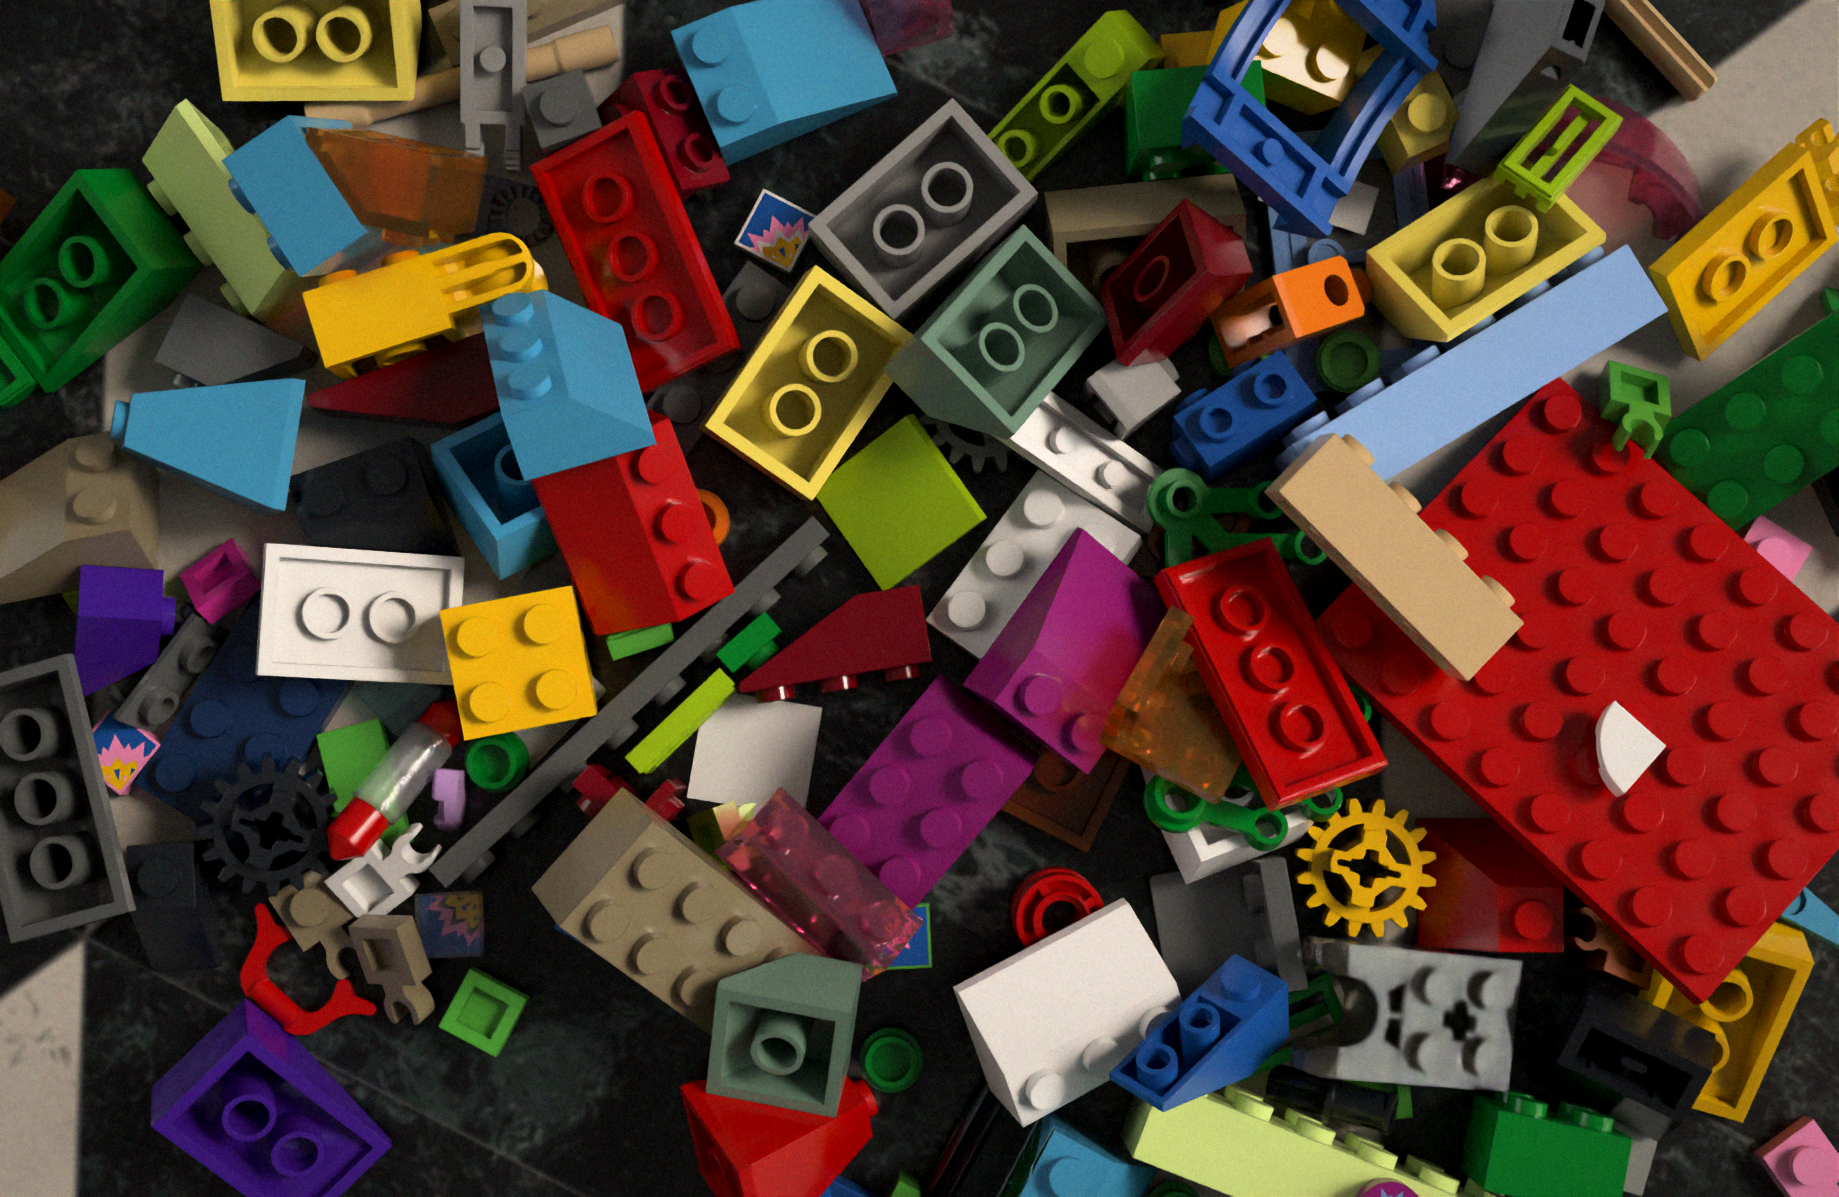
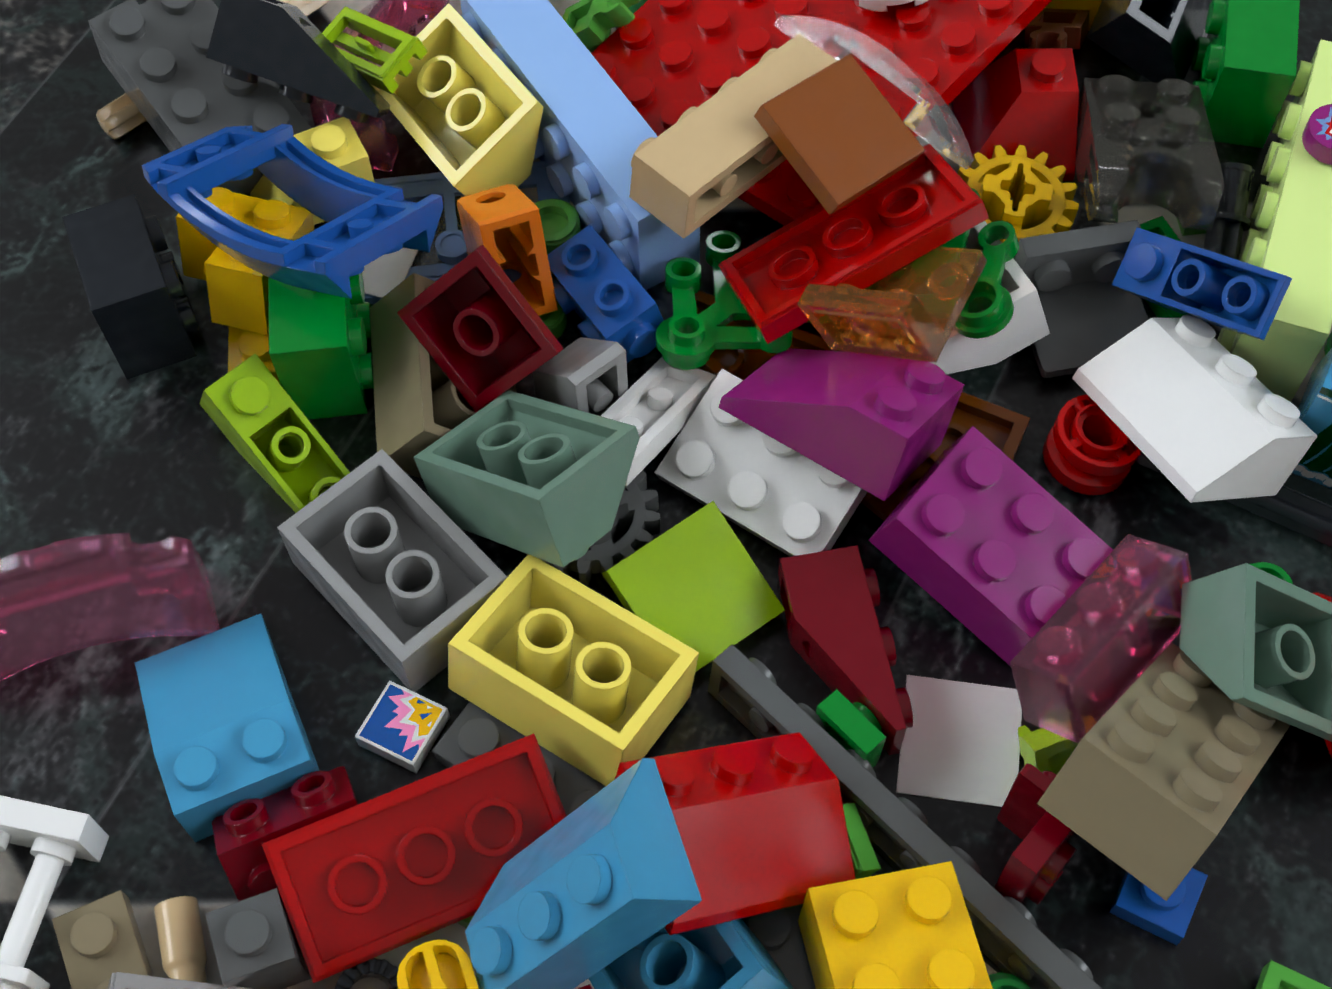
camera: 80 degrees left, 25 degrees down
(682, 722) = (940, 799): lime tile -> none
(1375, 658) = (839, 133): none -> dark orange tile
(1410, 773) = (929, 117): none -> clear slope

